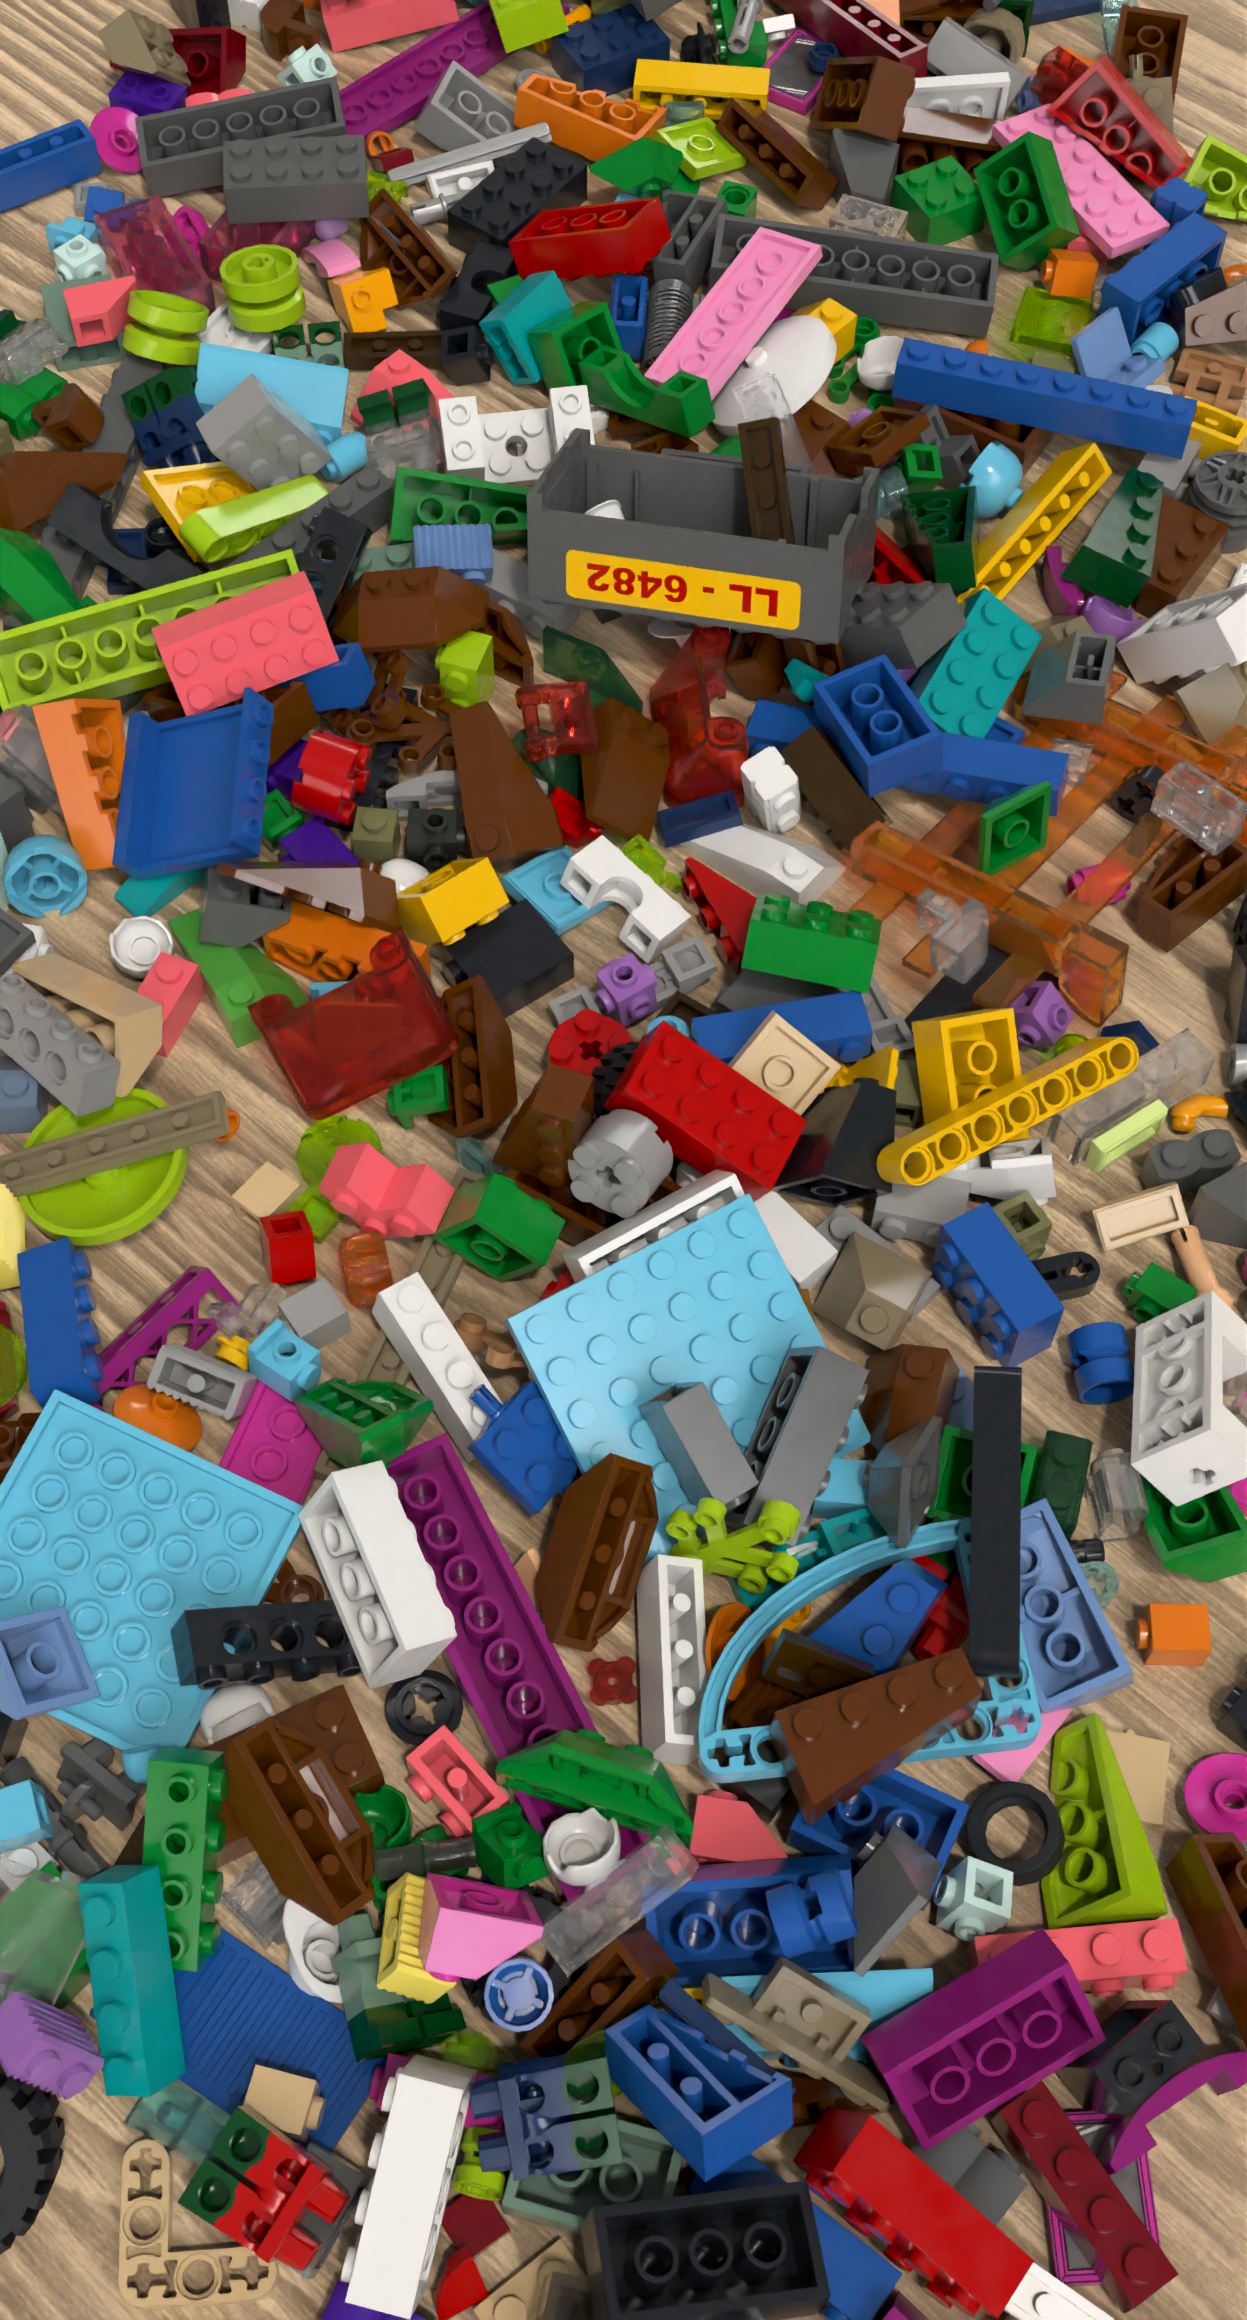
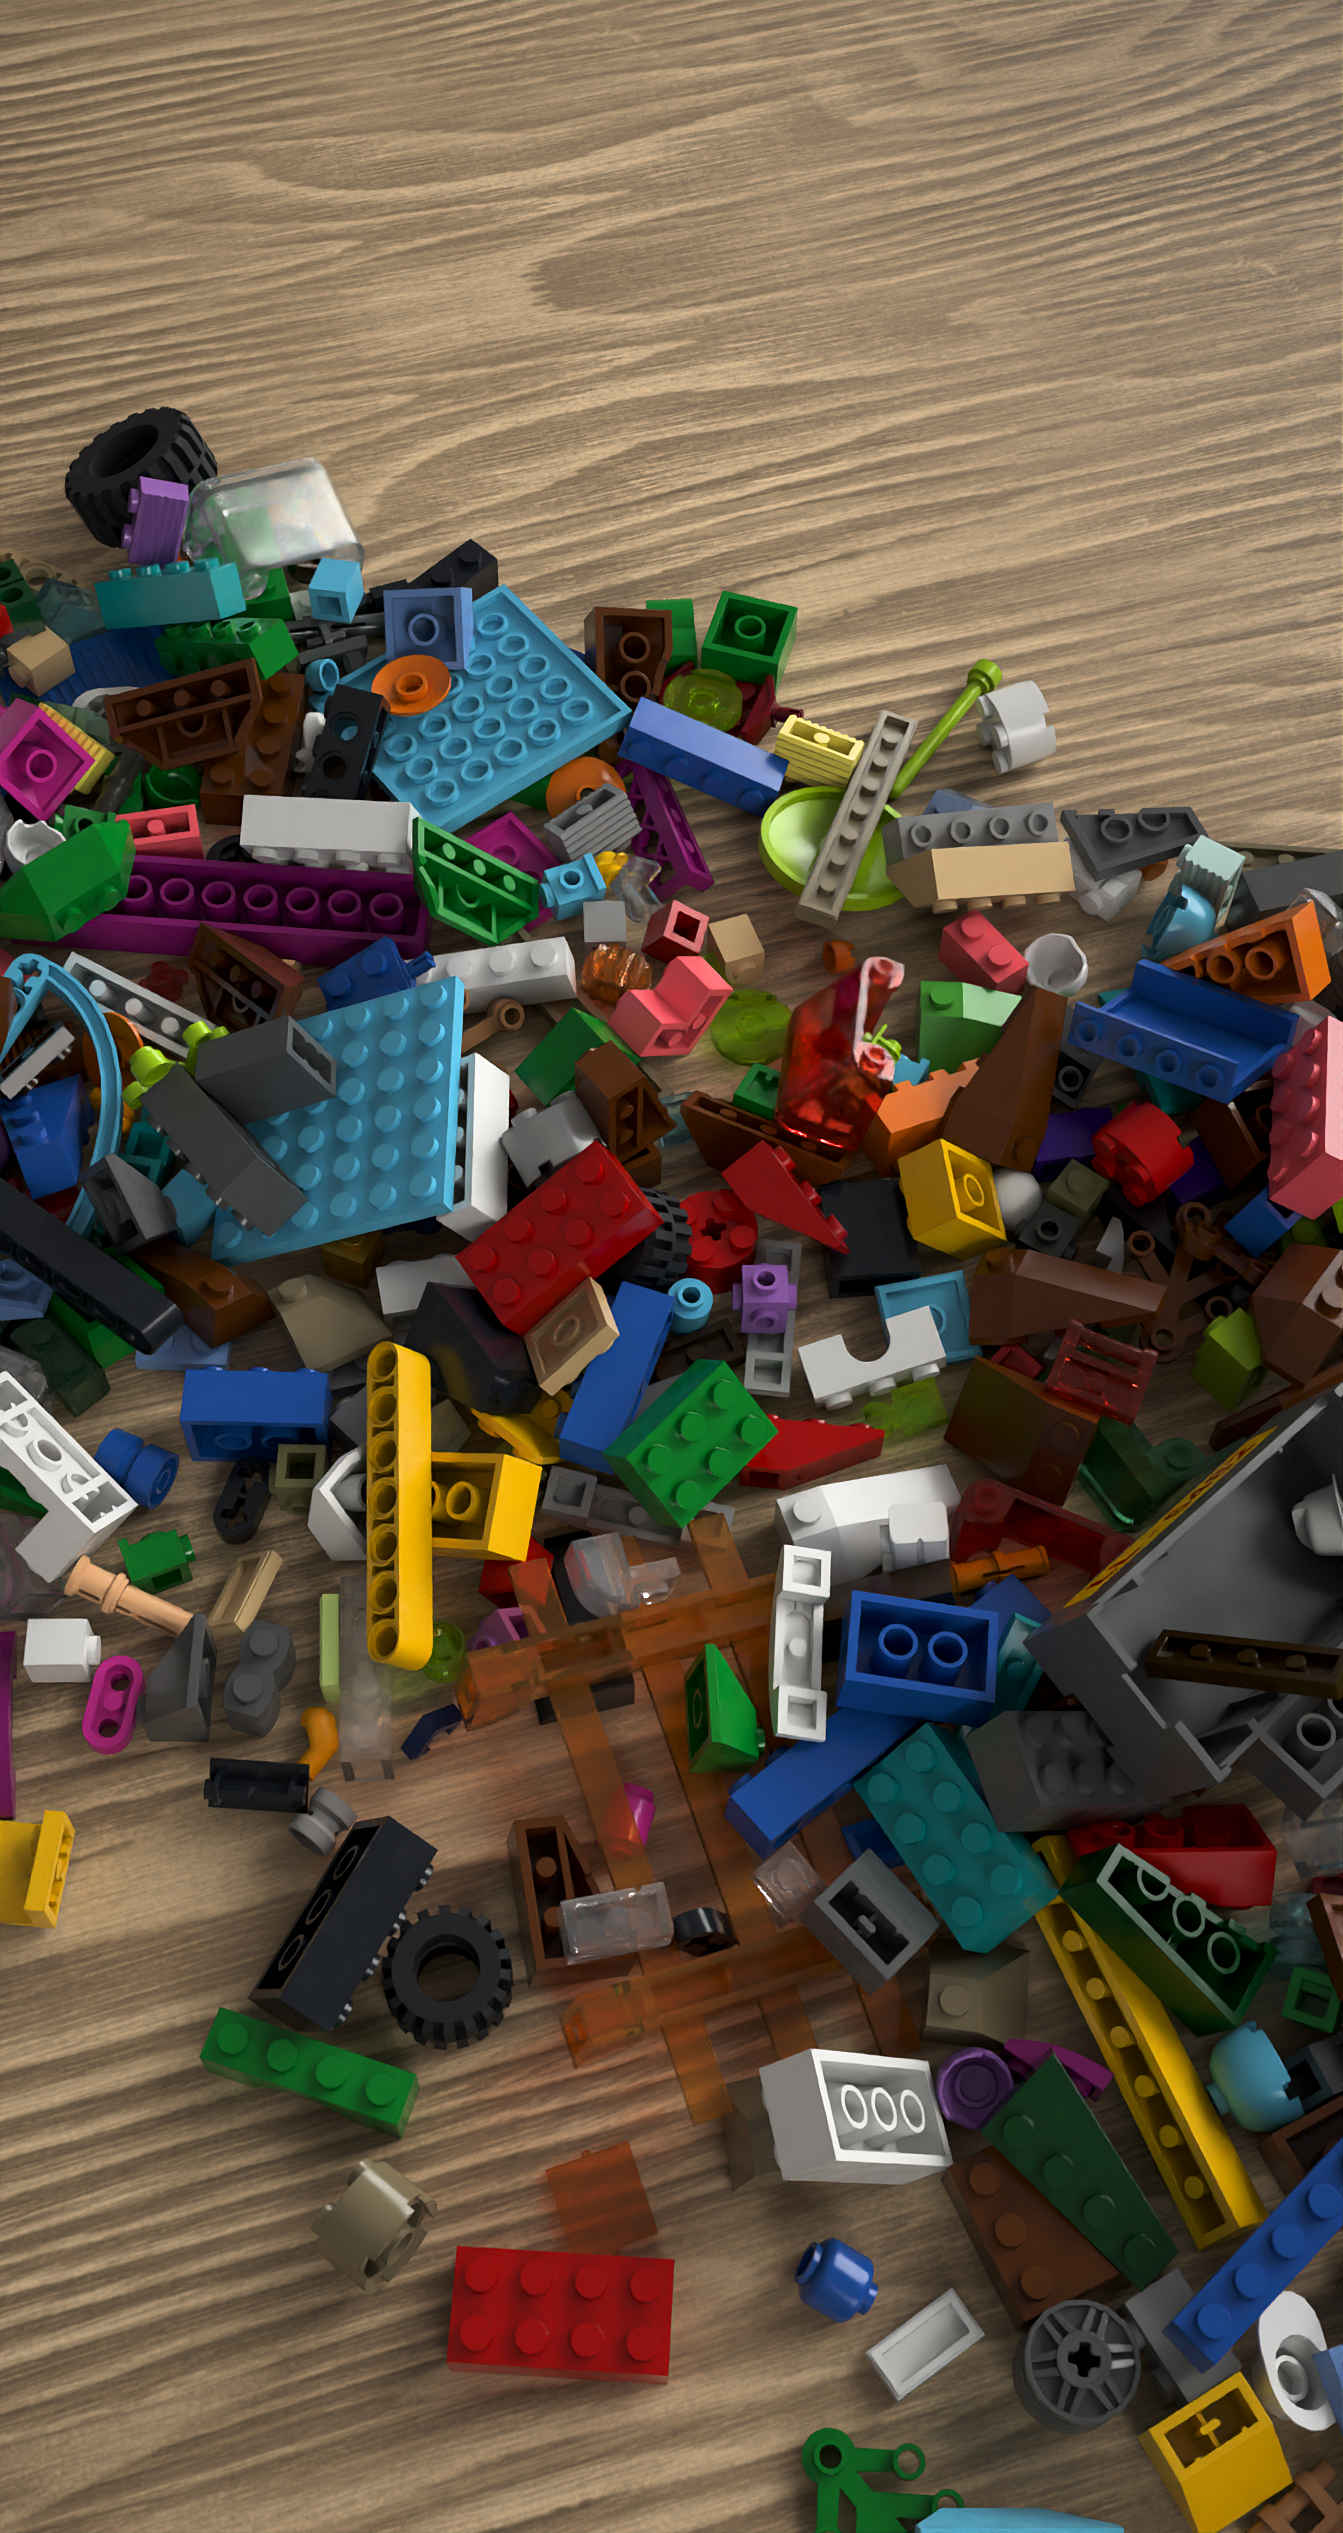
camera: 120 degrees right, 0 degrees up
(106, 1618) = (413, 684): none -> orange dish
(538, 1007) = (771, 1191): none -> red slope
(699, 818) = (942, 1477): dark blue tile -> none
(924, 808) = (796, 1644): none -> white slope

